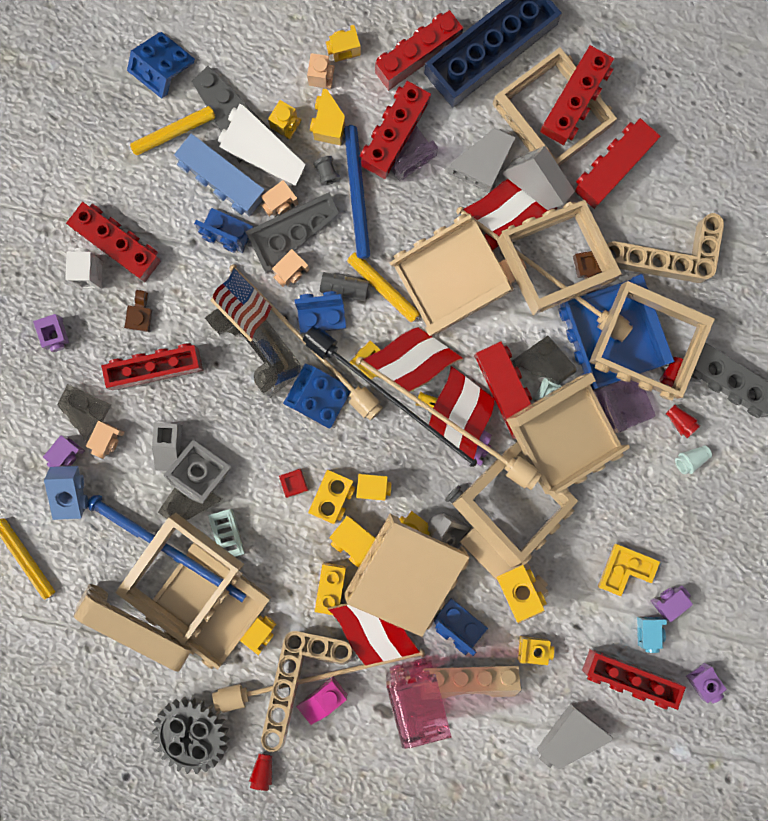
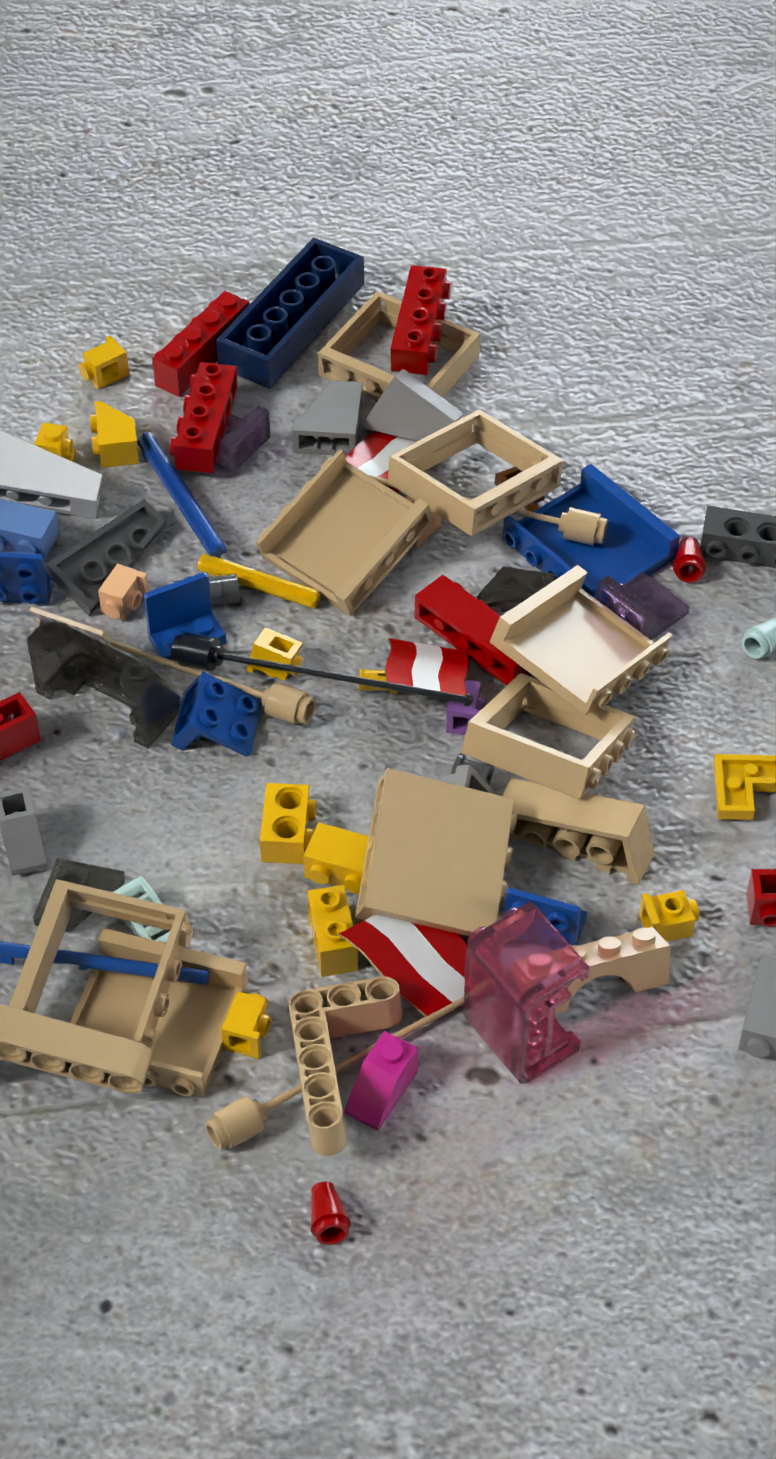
camera: 15 degrees left, 35 degrees down
(170, 733) = (158, 1201): dark grey gear -> none
(197, 472) = (77, 842): light grey slope -> none
(278, 199) = (77, 524): light nougat brick -> none
(293, 483) = (223, 830): red tile -> none
(320, 71) = (82, 392): light nougat brick -> none
(326, 170) = (127, 481): dark grey bush -> none
(373, 487) = (341, 782): yellow brick -> none
(416, 360) = (342, 634): flag -> none
(511, 582) = (607, 812): yellow brick -> none
(616, 164) = (503, 372): red brick -> none
(668, 259) = (626, 453): tan beam -> none
(683, 422) = (730, 602): red cone -> none
(701, 321) = (644, 476): tan window -> none

